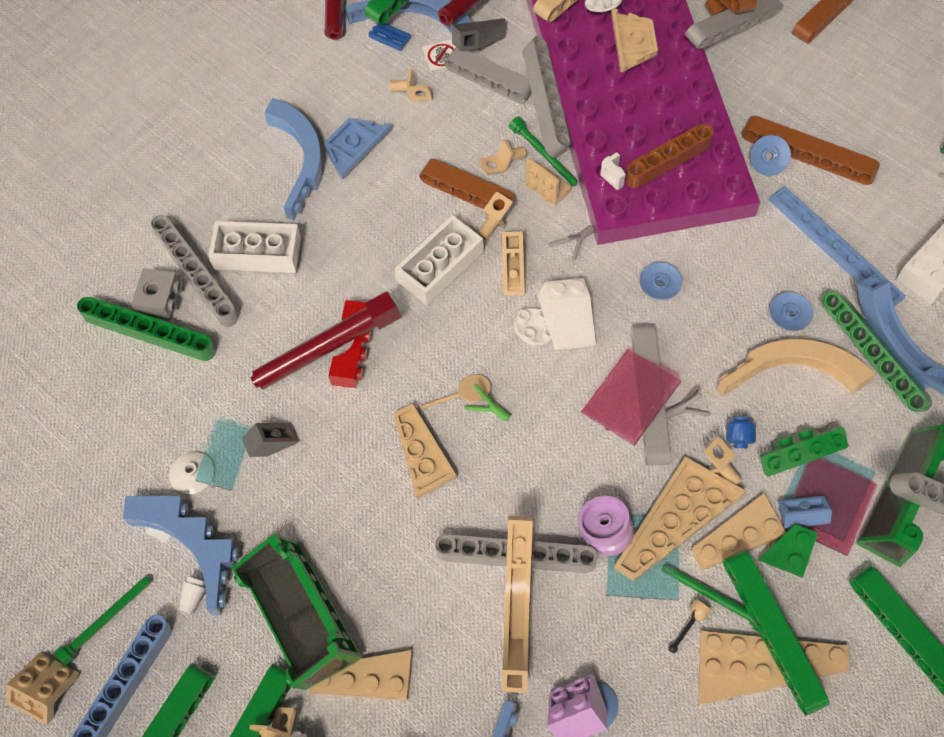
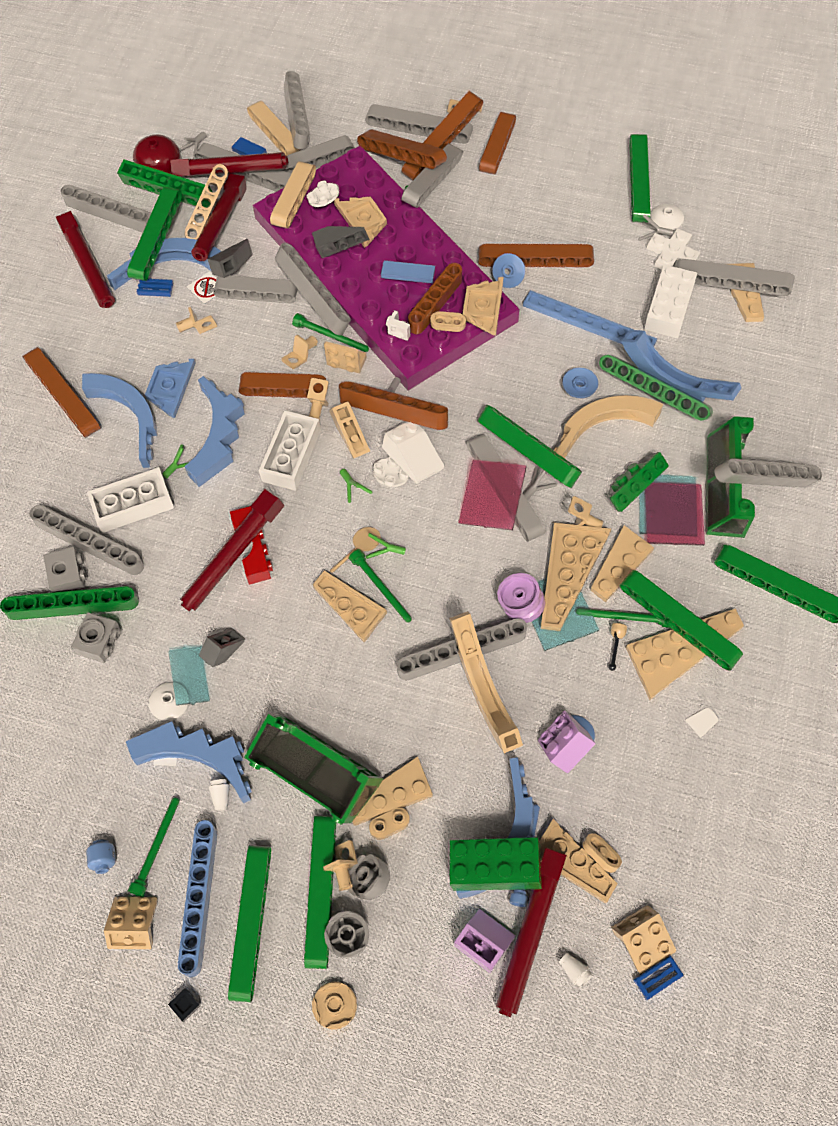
camera: 25 degrees left, 0 degrees up
(46, 604) = (100, 856): none -> medium blue head
(154, 386) = (102, 645): none -> light grey brick
(244, 109) = (61, 392): none -> dark orange beam
(316, 228) = (174, 466): none -> bright green plant
(346, 710) = (390, 825): none -> tan plate
(363, 231) = (216, 452): none -> medium blue arch
(454, 406) = (358, 558): none -> green piece
(488, 322) = (348, 479): none -> bright green plant
(570, 256) = (394, 405): none -> dark orange beam
(594, 52) = (338, 238): none -> dark grey slope
(654, 115) = (408, 271): none -> medium blue tile
(663, 274) = (474, 393): medium blue dish -> none
(671, 186) = (448, 321): none -> tan plate
(698, 360) = (529, 446): none -> green beam
(719, 182) = (483, 304): none -> tan wing
(741, 432) = (586, 487): blue head -> none
(791, 551) = (664, 558): green wing -> none
(805, 511) = (660, 526): medium blue slope -> none

